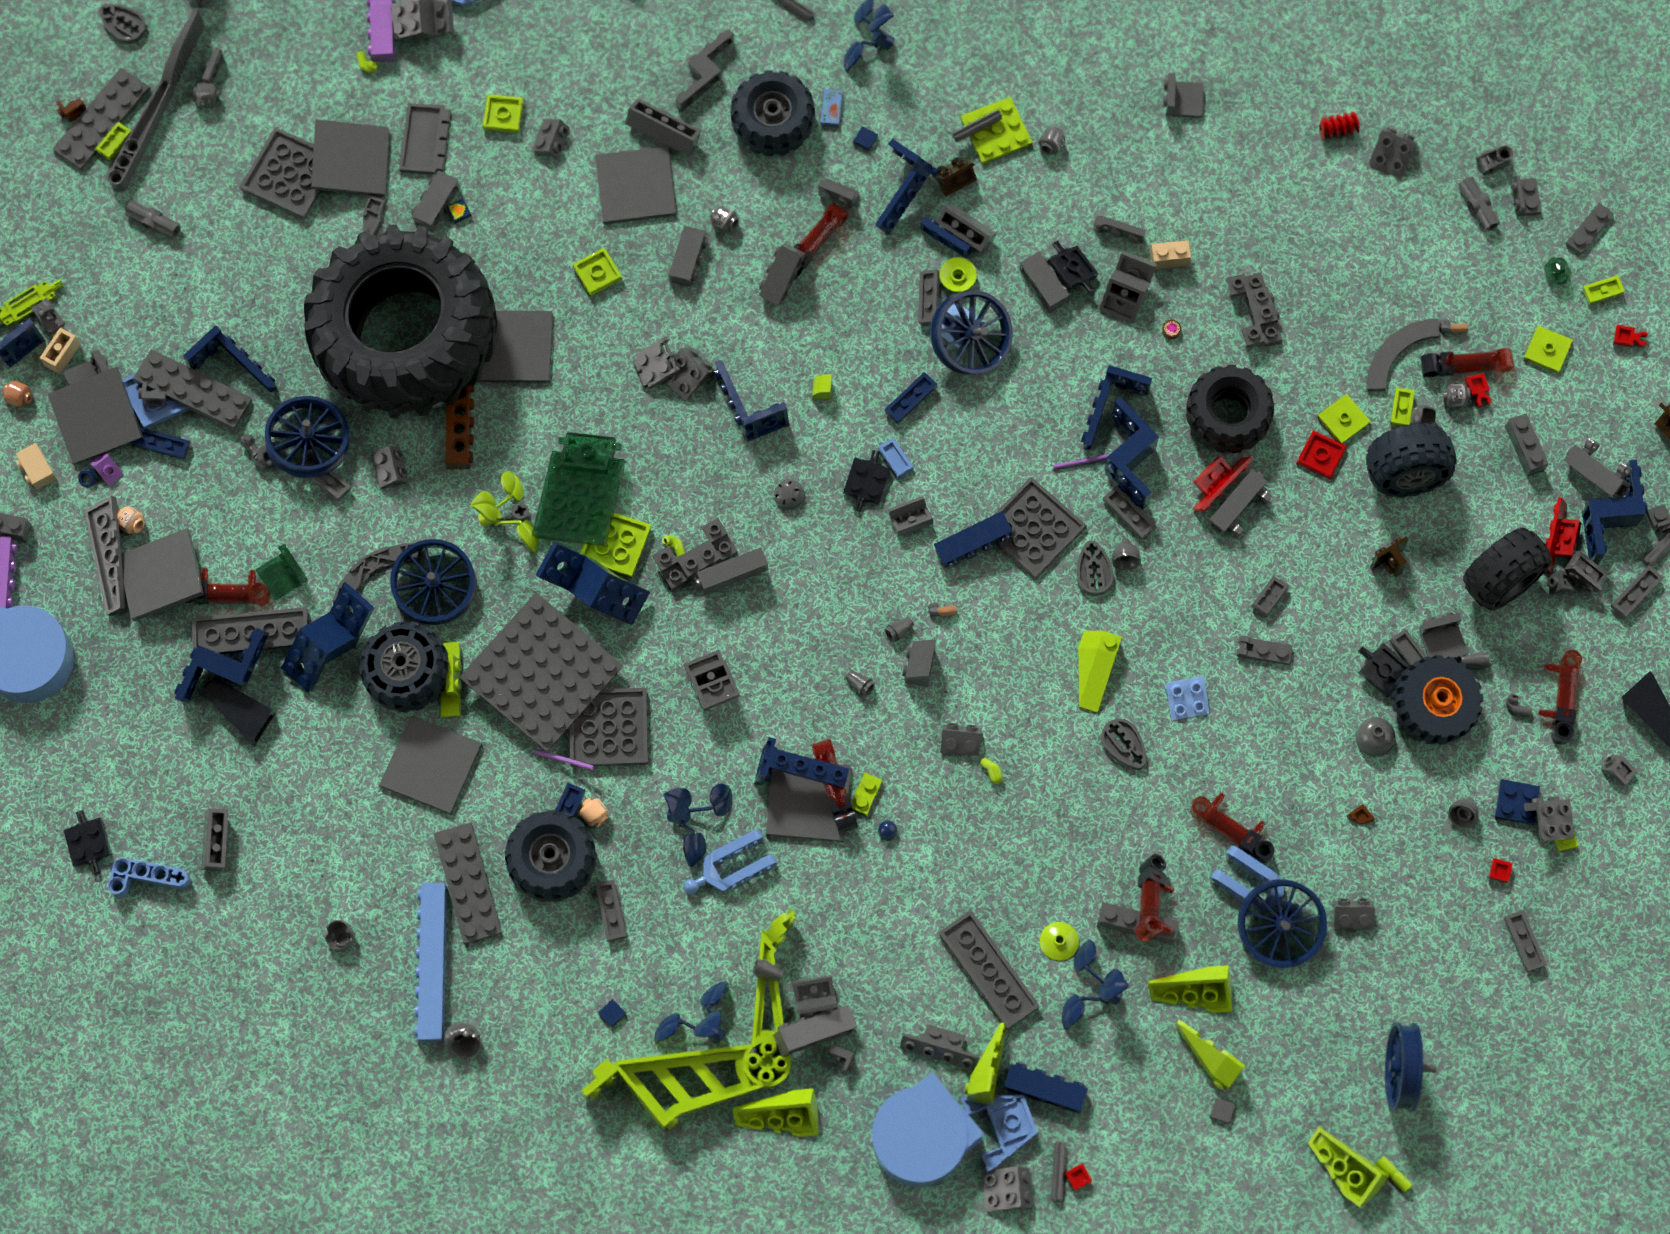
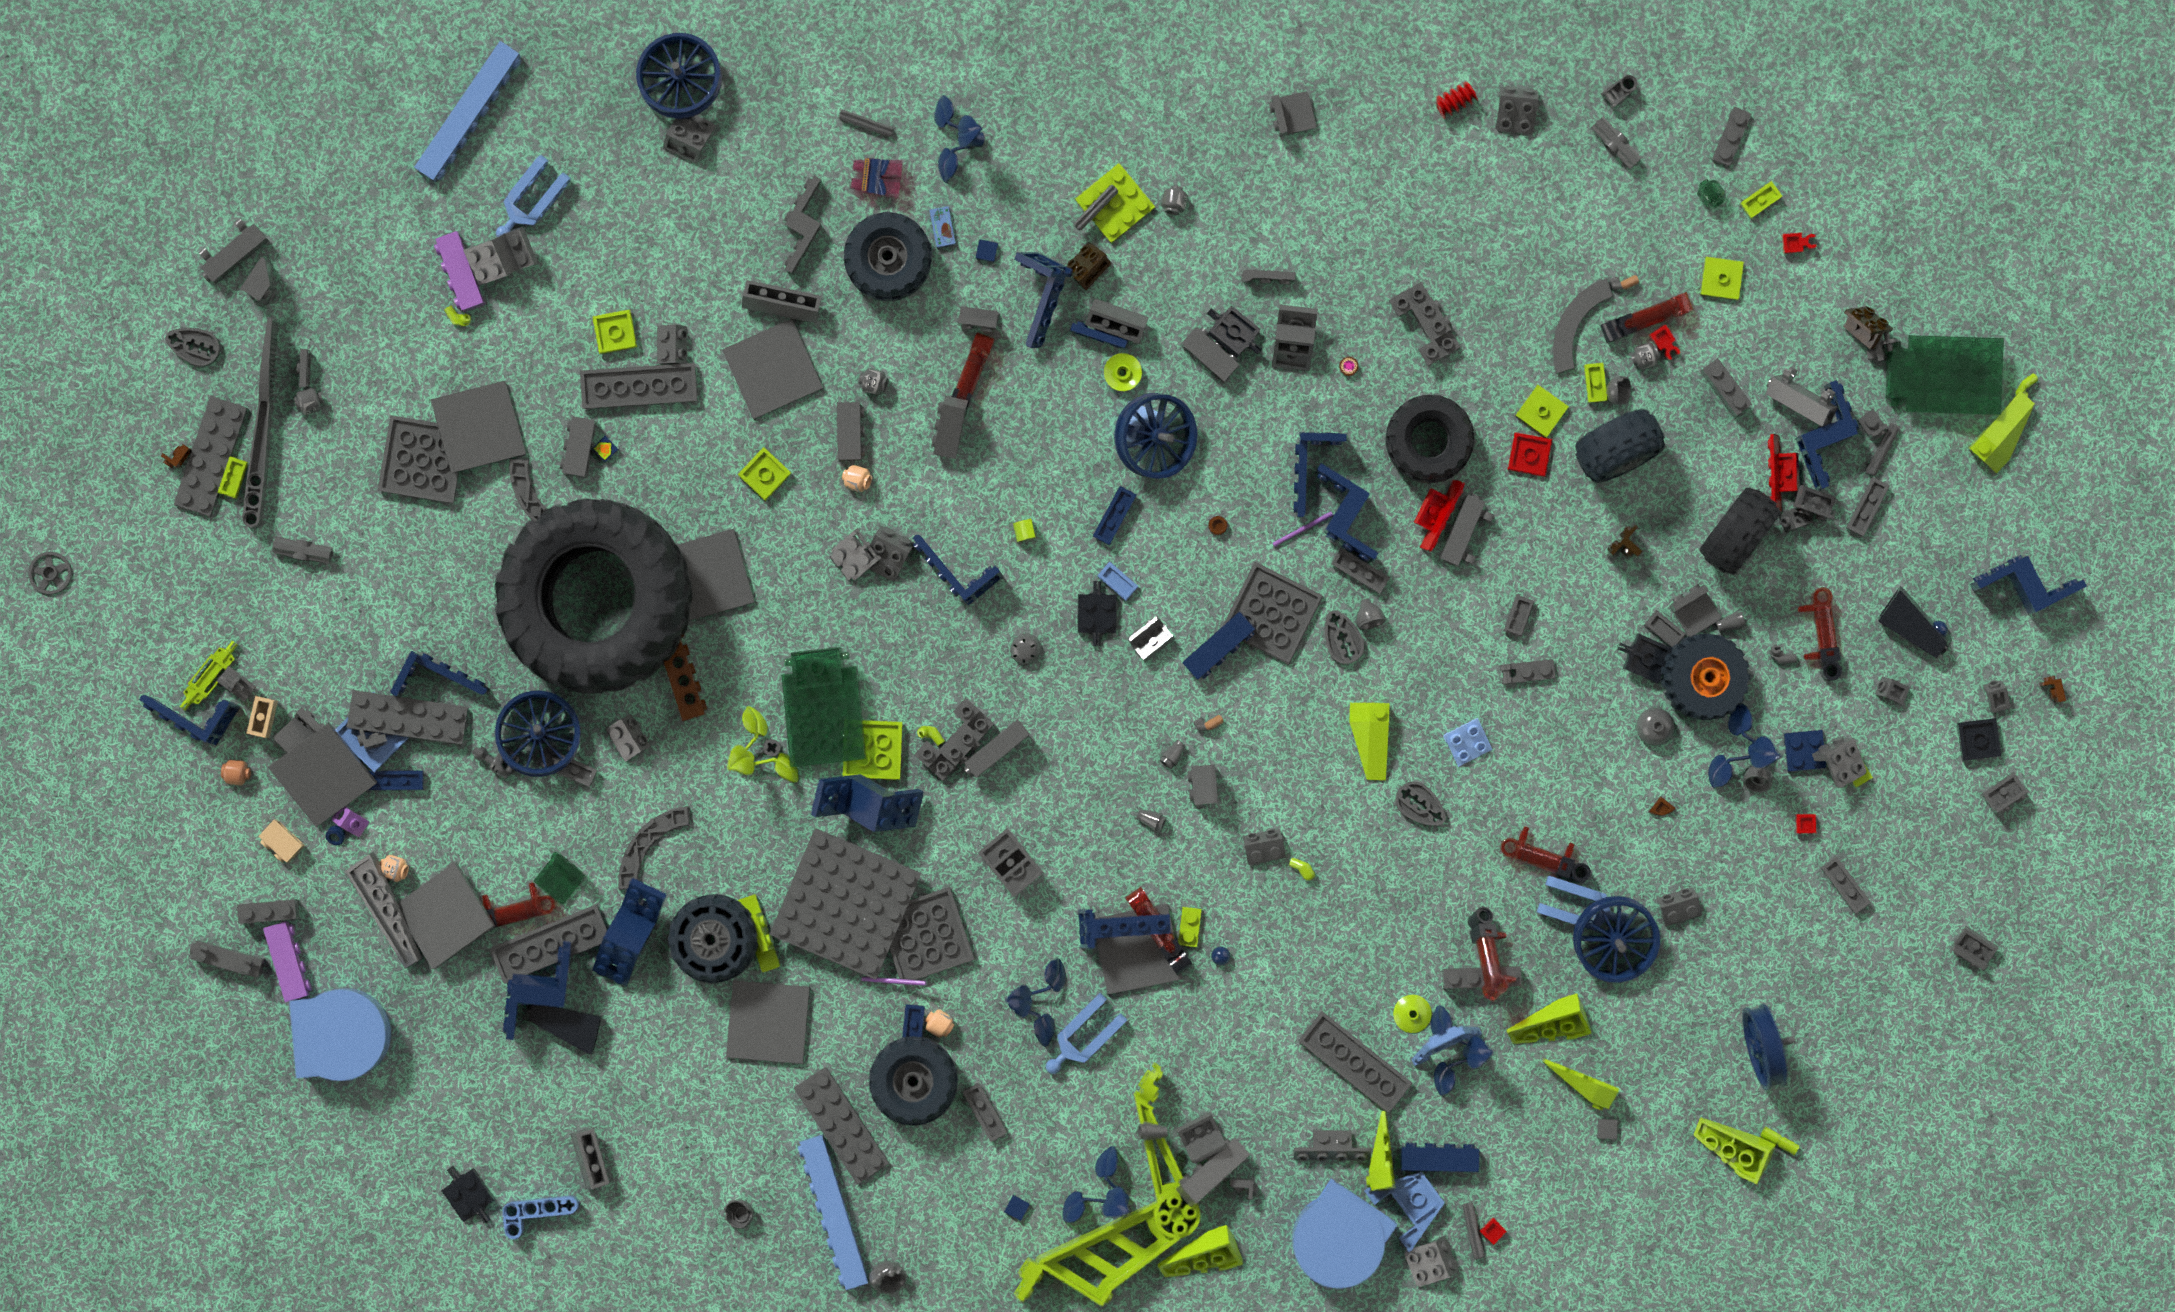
camera: 20 degrees left, 15 degrees up
(423, 138) = (542, 381): dark grey hinge -> none
(433, 582) = (710, 843): dark blue wheel -> none
(508, 165) = (638, 386): none -> dark grey plate
(681, 298) = (857, 478): none -> light nougat head
(786, 49) = (873, 177): none -> hips
(928, 295) = (1100, 404): dark grey plate -> none
(1005, 435) = (1218, 525): none -> reddish brown tile
(1079, 968) = (1438, 1043): none -> medium blue wing
(1171, 254) = (1326, 289): tan brick -> none
(1472, 784) = (1761, 751): none -> dark blue plant
(1526, 195) = (1661, 120): dark grey bracket -> none
(1640, 1040) = (1974, 948): none -> dark grey bracket

